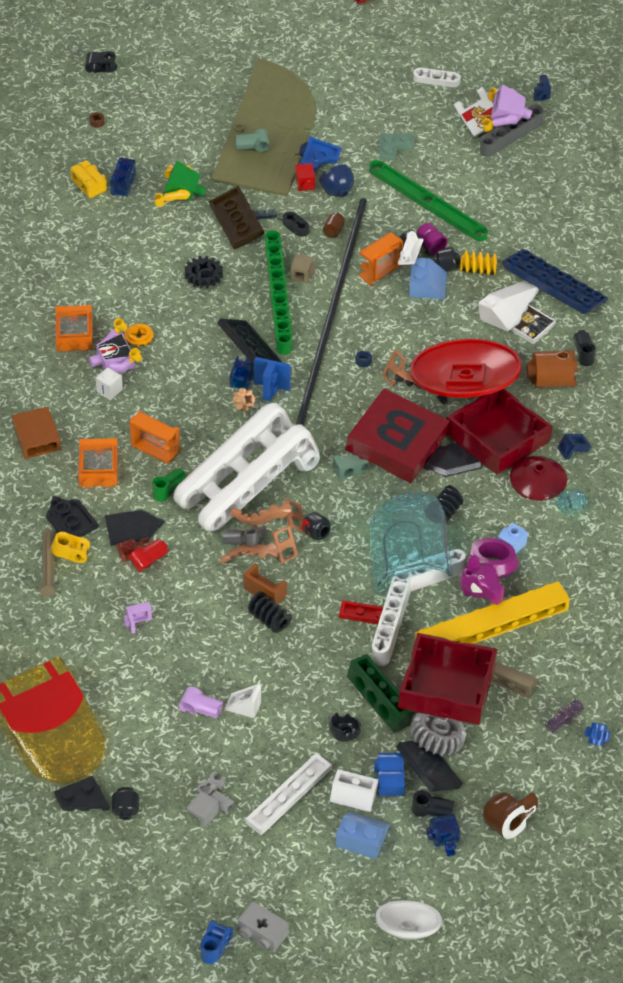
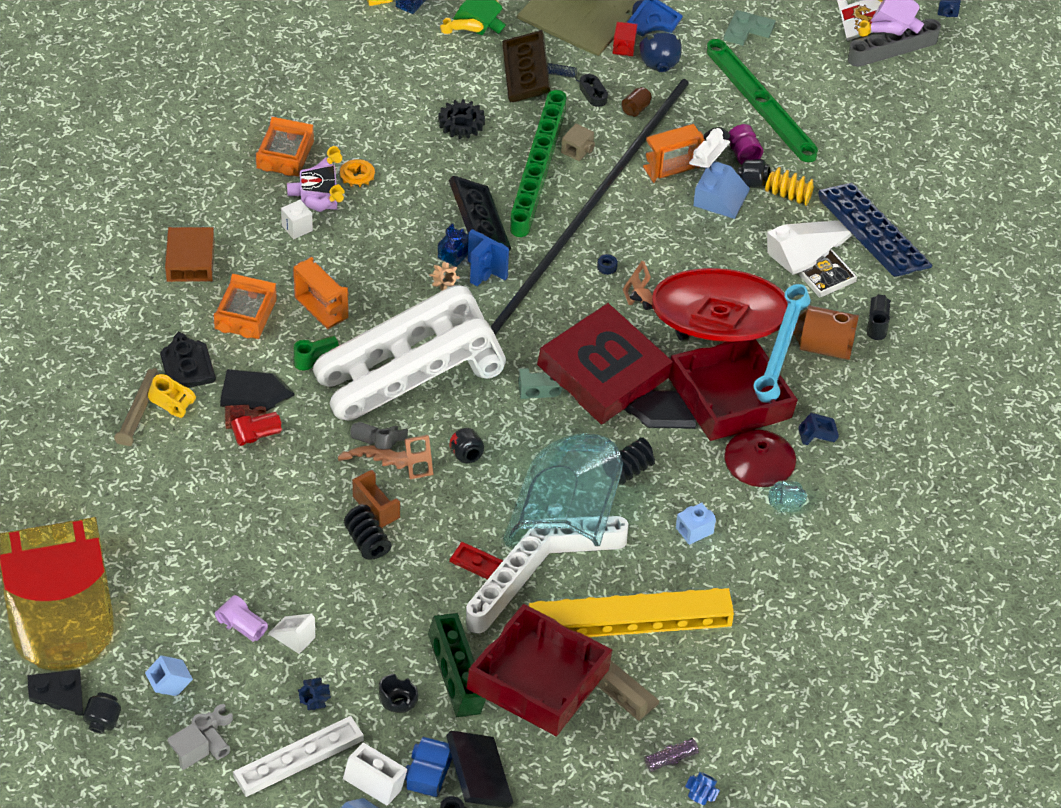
camera: 15 degrees right, 0 degrees up
(137, 613) = (212, 493): lavender bracket -> none
(165, 761) = (168, 676): none -> light blue brick
(273, 513) = (433, 418): nougat piece -> none
(281, 744) = (314, 693): none -> dark blue gear
(438, 734) = (504, 734): light grey gear -> none
(482, 574) = (637, 554): magenta animal -> none
(525, 385) = (782, 343): none -> medium azure piece

